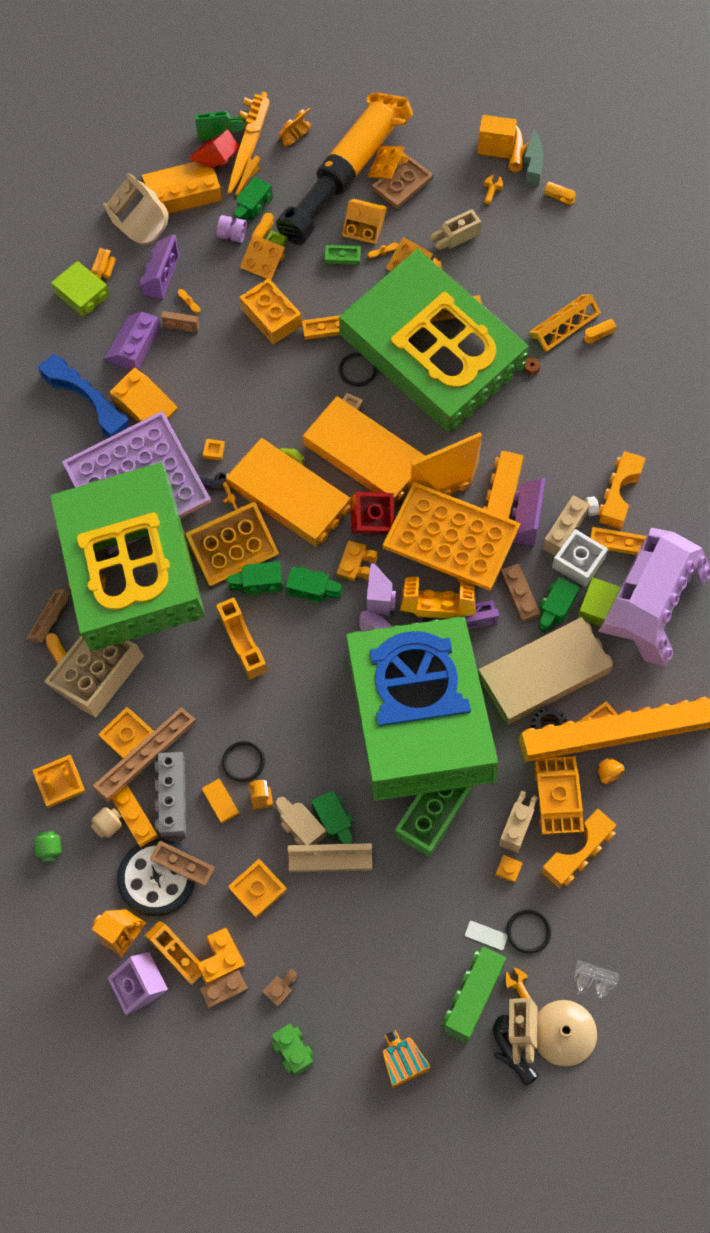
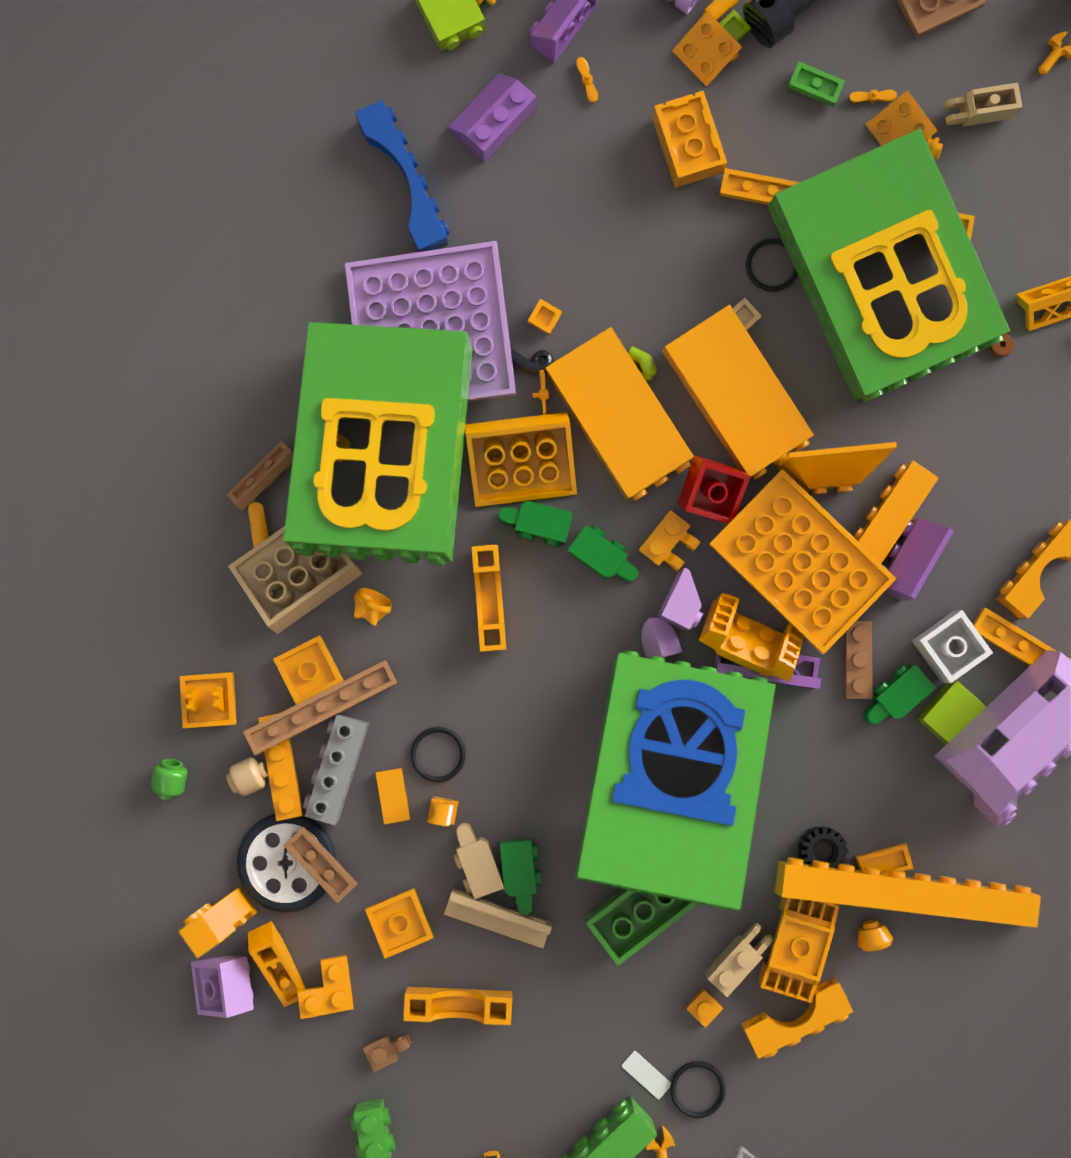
camera: 10 degrees right, 20 degrees up
(141, 397) = (477, 208): light orange slope -> none
(157, 676) = (371, 605): none -> light orange piece
(180, 321) = (557, 105): medium nougat plate -> none
(223, 989) = (320, 1028): medium nougat plate -> none
(306, 935) = (485, 1006): none -> light orange arch
(363, 221) = (864, 41): light orange slope -> none
(545, 670) = (848, 778): tan brick -> none
(569, 519) = (955, 594): tan arch -> none
(593, 507) = (996, 577): white tile -> none

